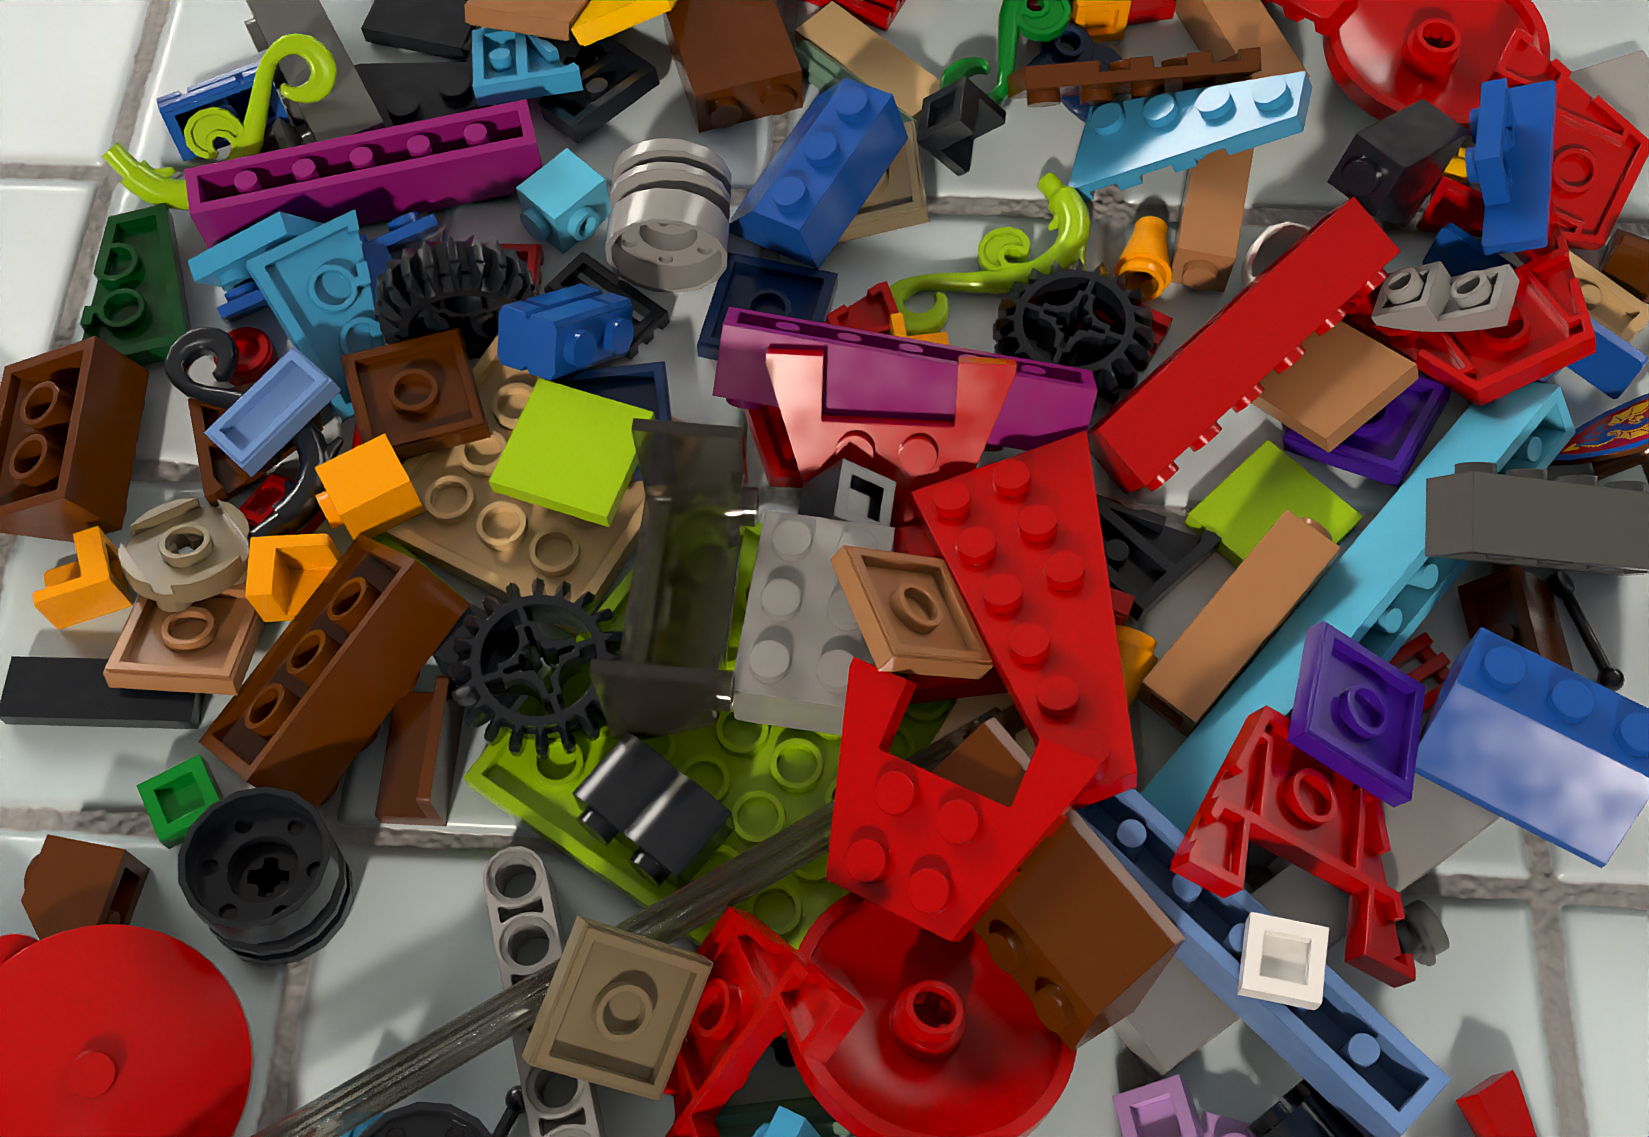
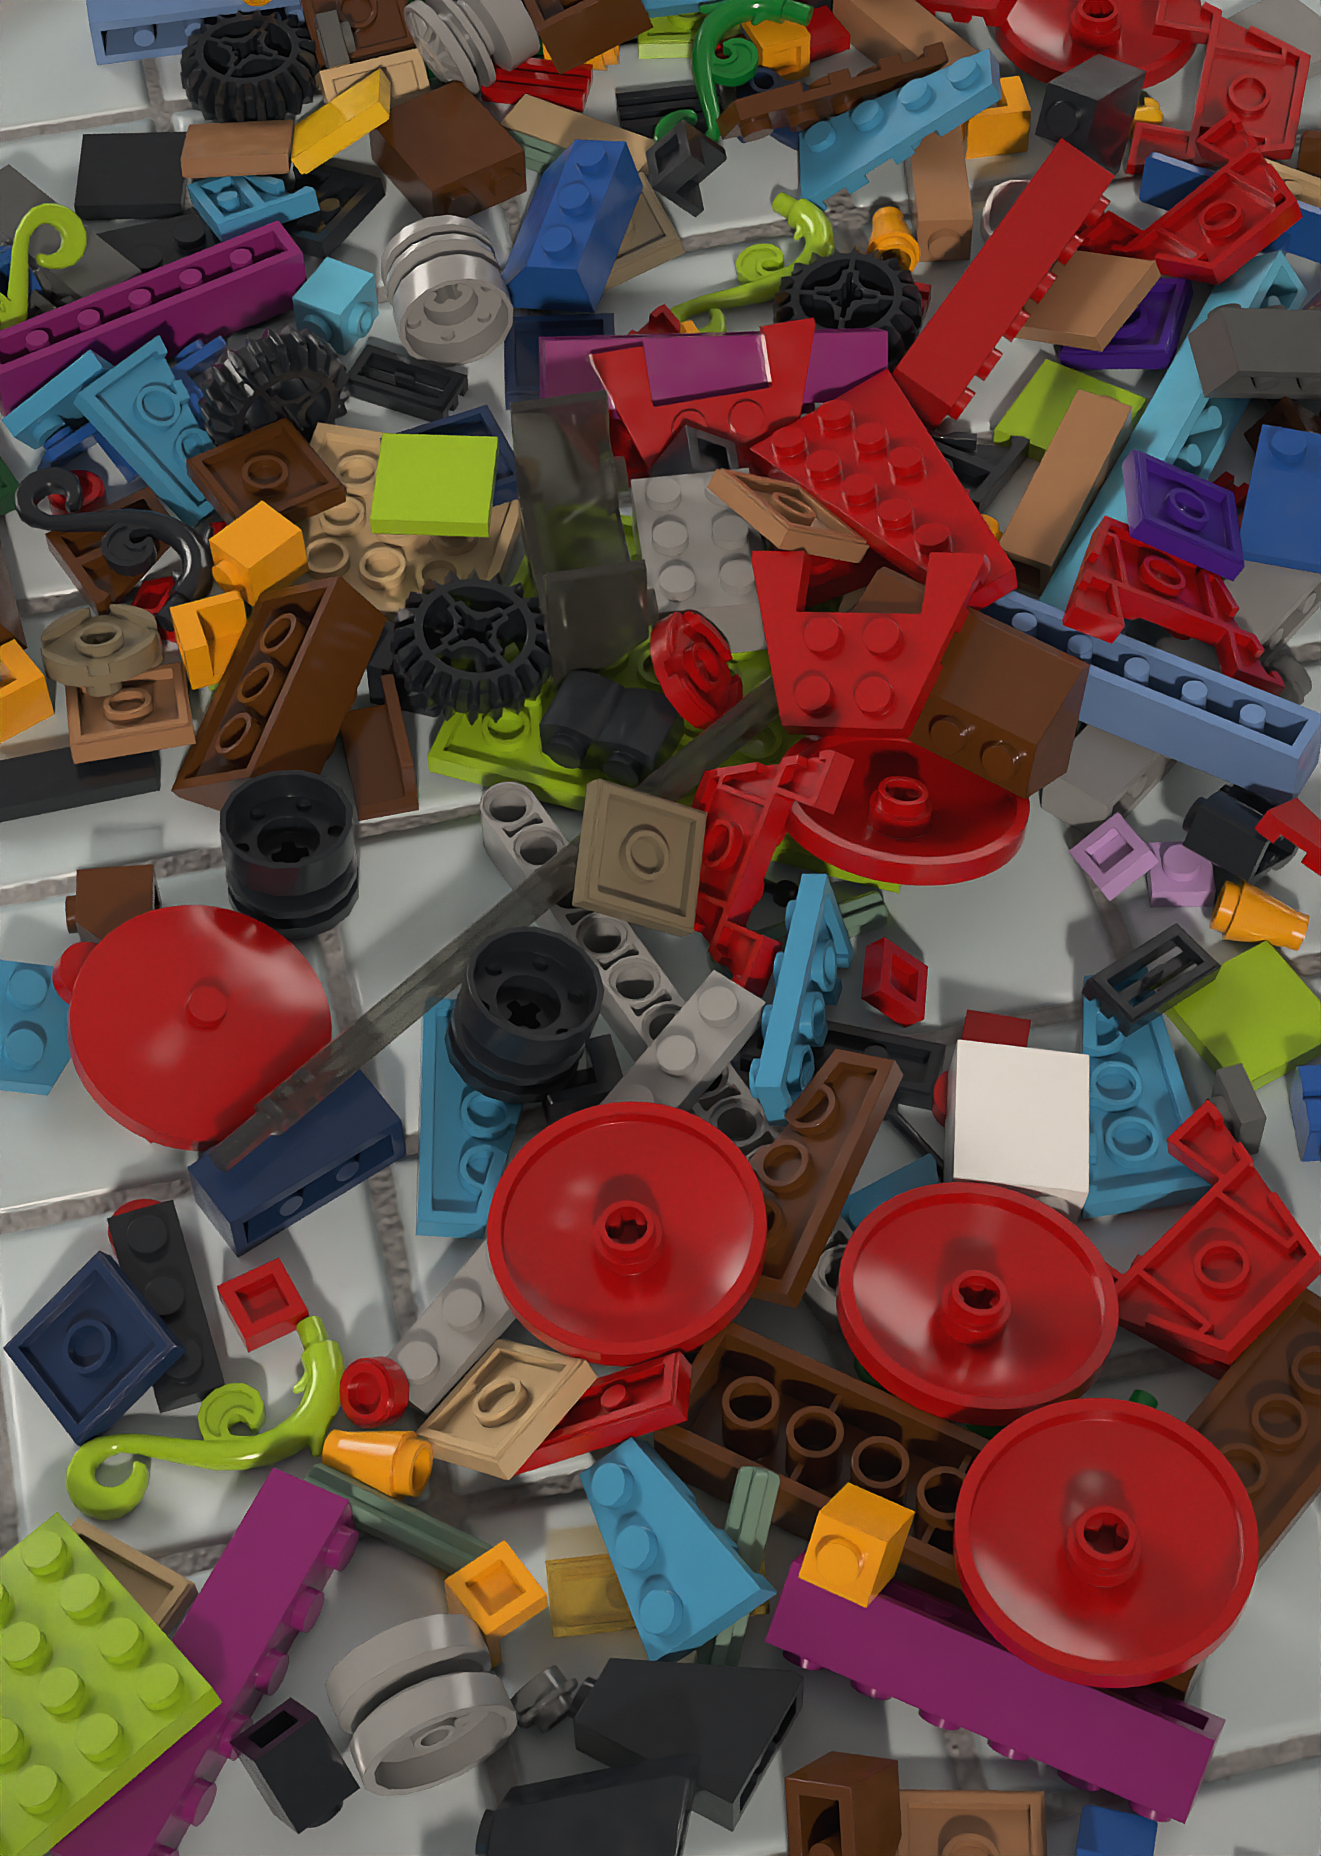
camera: 15 degrees left, 10 degrees down
(179, 798) = (178, 835): green plate -> none
(272, 411) = (143, 513): medium blue tile -> none
(564, 331) = (388, 397): blue brick -> none
(758, 770) = (693, 668): none -> red tile
(961, 41) = (643, 109): none -> black tile
(1283, 961) = (1171, 663): white plate -> none
(1303, 152) = (1000, 128): none -> light orange panel
(1433, 301) = (1153, 213): light grey slope -> none
(1513, 163) = (1192, 87): blue bracket -> none

